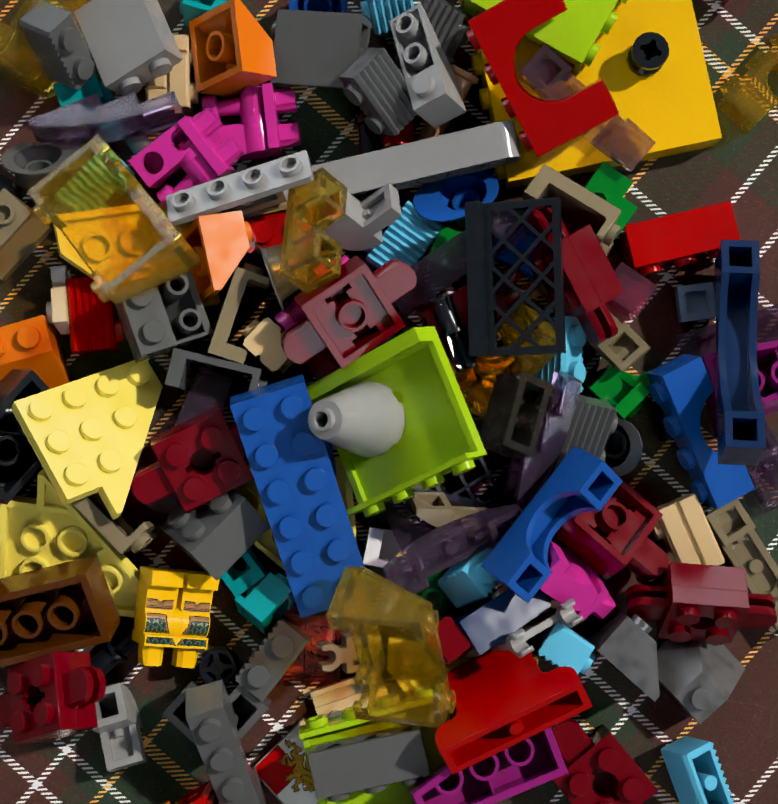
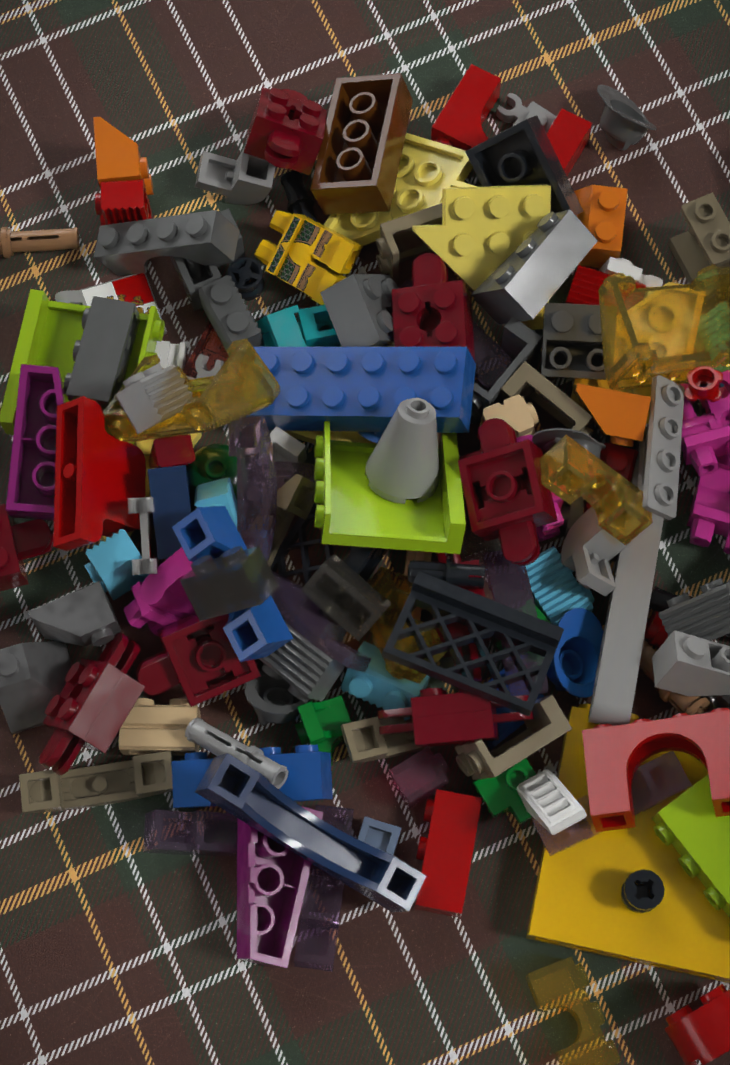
camera: 120 degrees right, 15 degrees down
(106, 380) = (535, 268): none -> wedge
(147, 177) = (700, 376): none -> red plate
(404, 683) = (153, 396): none -> light grey brick
(563, 521) = (229, 582): none -> clear smoke brick
(603, 172) = (550, 802): none -> white slope
(703, 409) = (221, 743): none -> light grey pin

